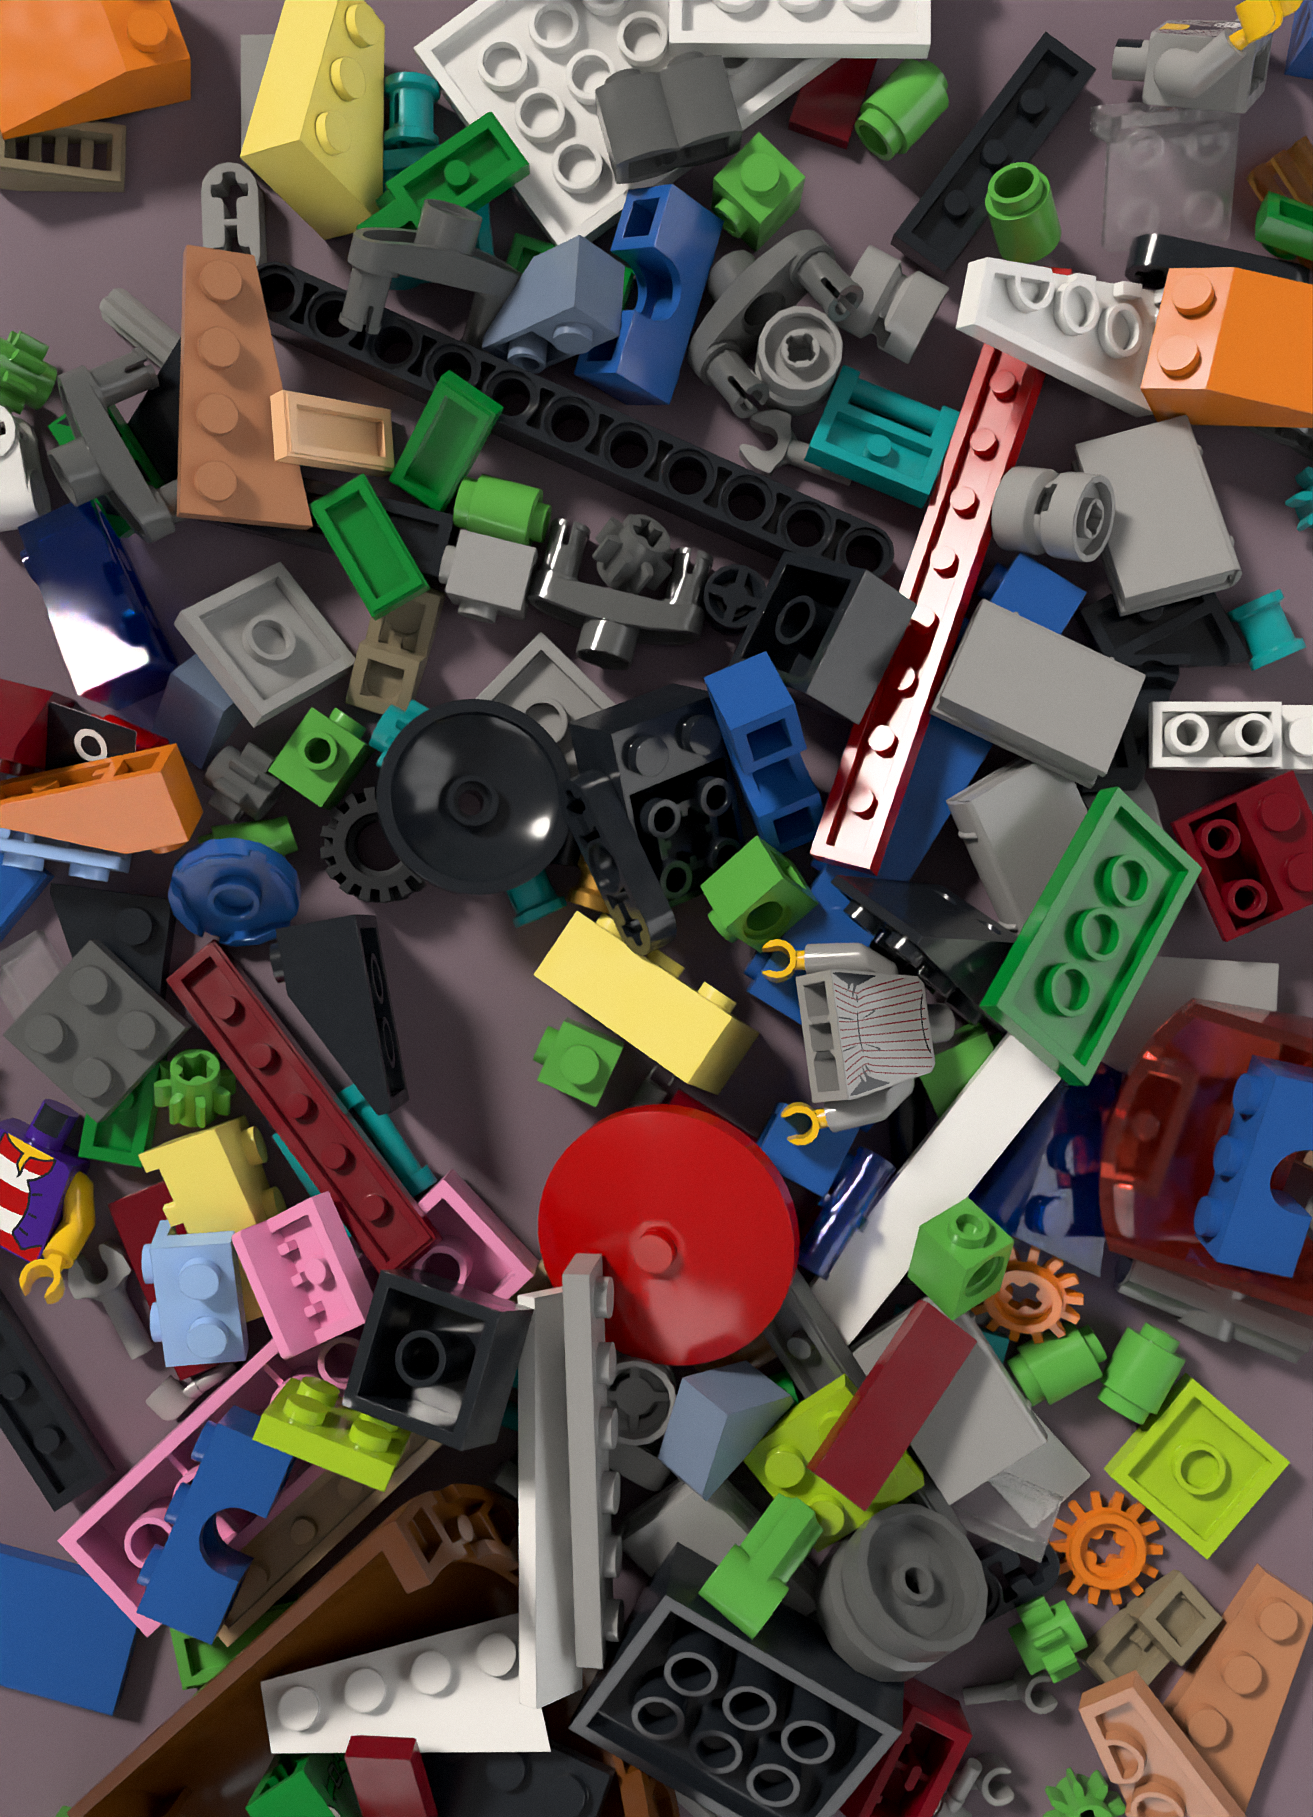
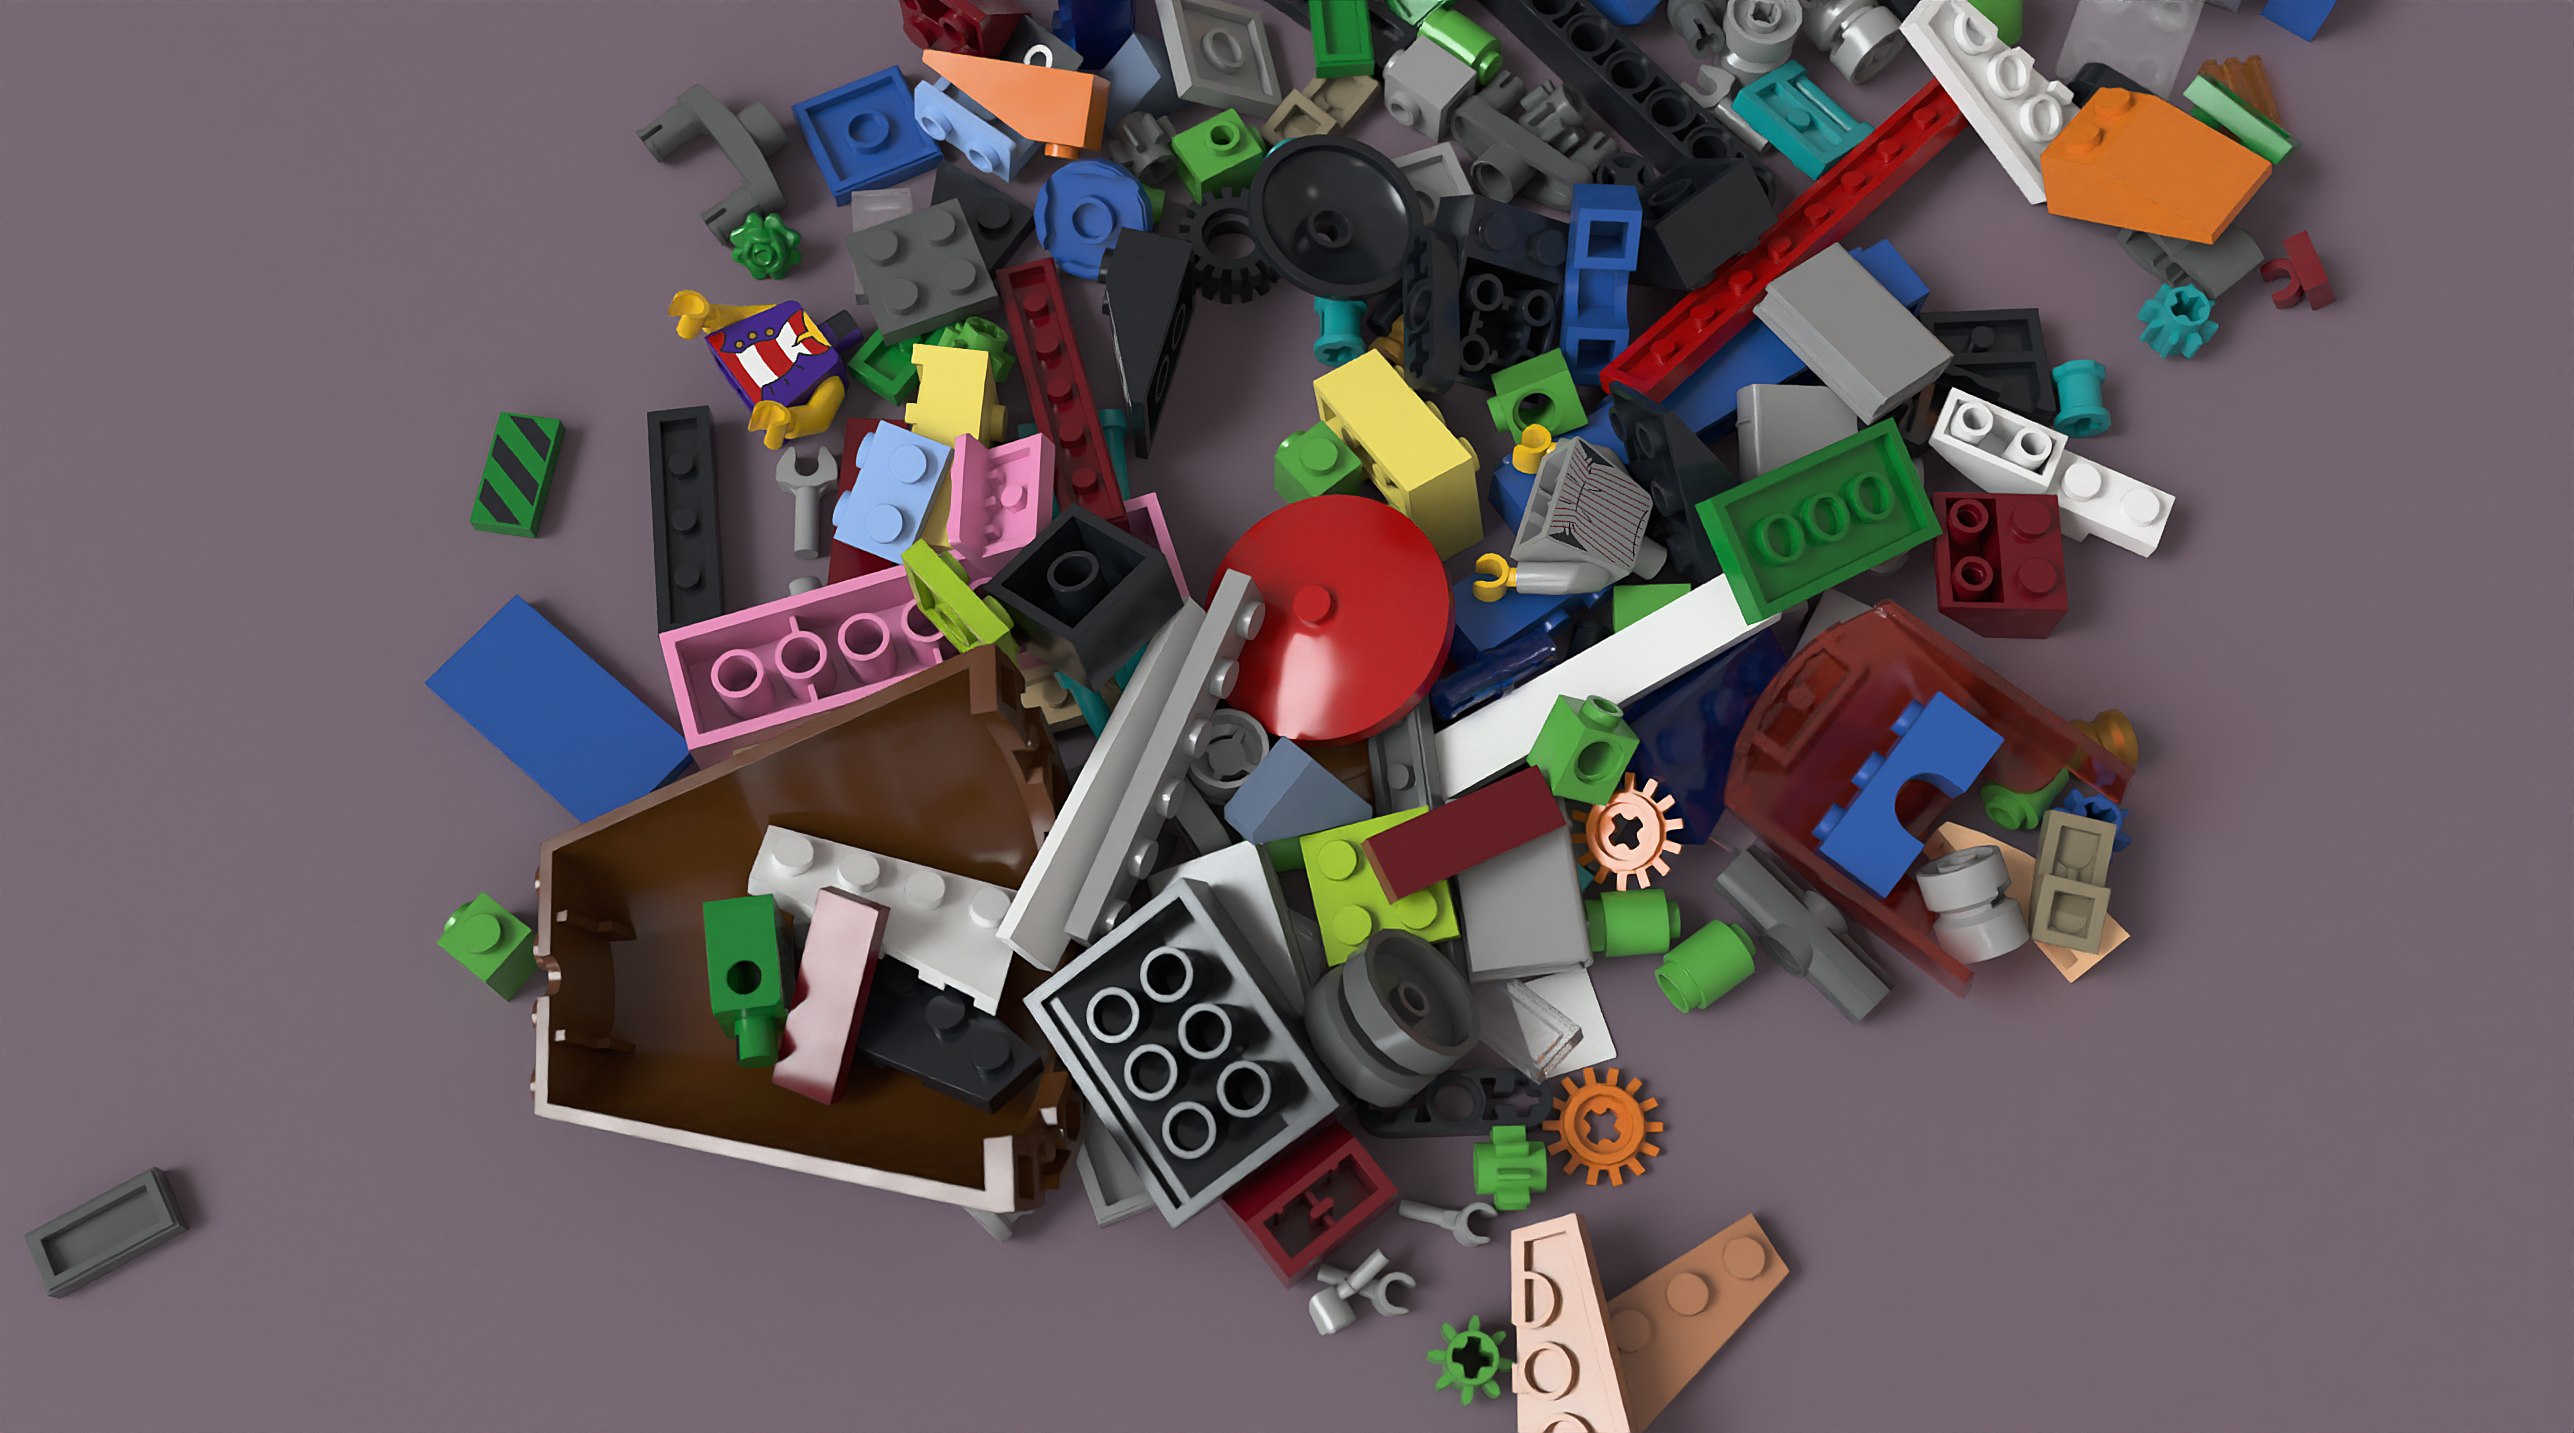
camera: 25 degrees right, 20 degrees down
(196, 1573) = (850, 624): blue arch -> none
(755, 1574) = (1270, 916): bright green piece -> none
(1053, 513) = (1926, 215): light grey wheel -> none
(1151, 1630) = (1627, 1219): dark tan slope -> none
(1167, 520) = (2015, 266): light grey piece -> none
(1196, 1466) = (1724, 1079): lime plate -> none

